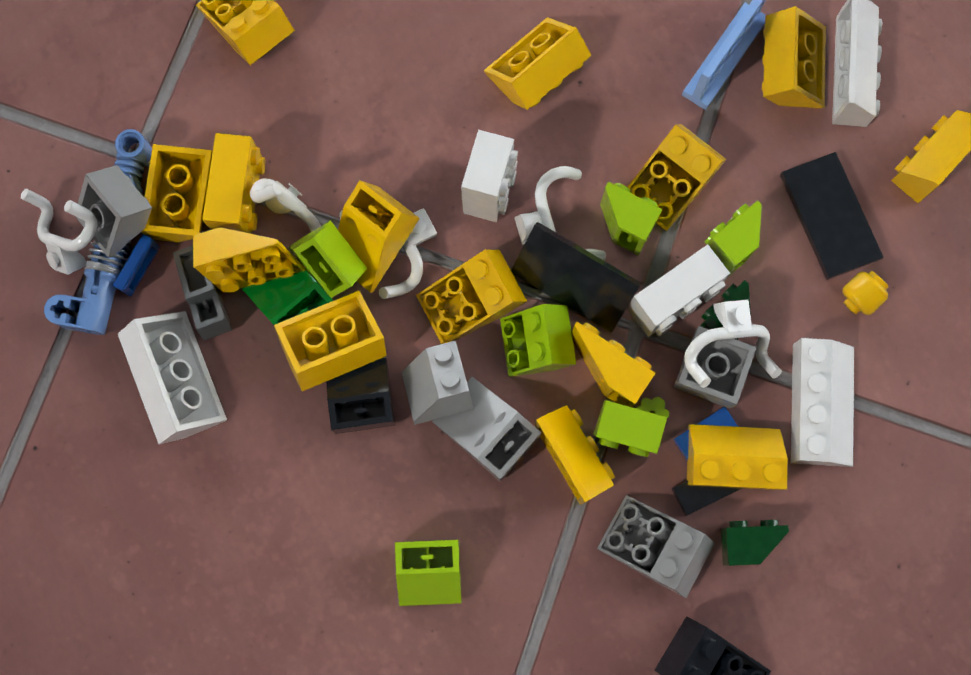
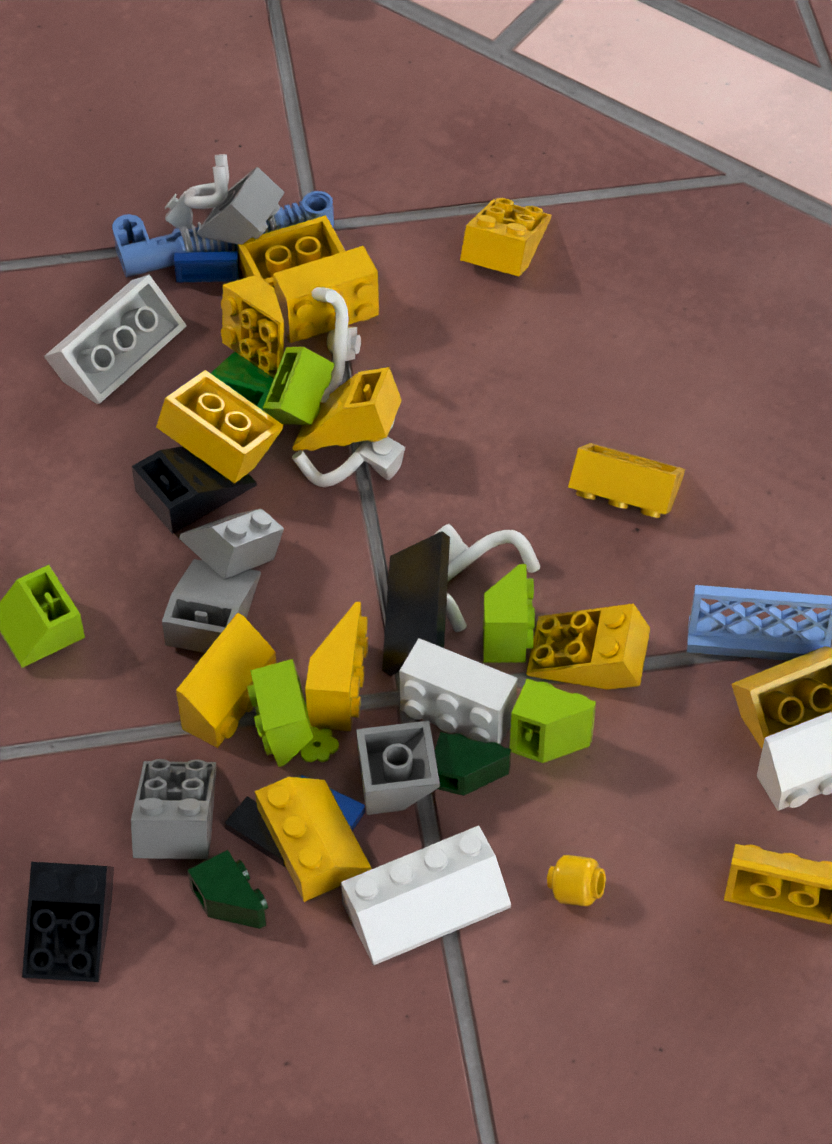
camera: 60 degrees right, 25 degrees down
(202, 296) = (198, 336): dark grey slope -> none
(471, 296) = (345, 533): yellow slope -> none
(489, 176) = (467, 473): white brick -> none
(538, 340) = (324, 604): lime slope -> none
(736, 324) = (450, 748): white piece -> none
(831, 216) = (646, 816): black tile -> none

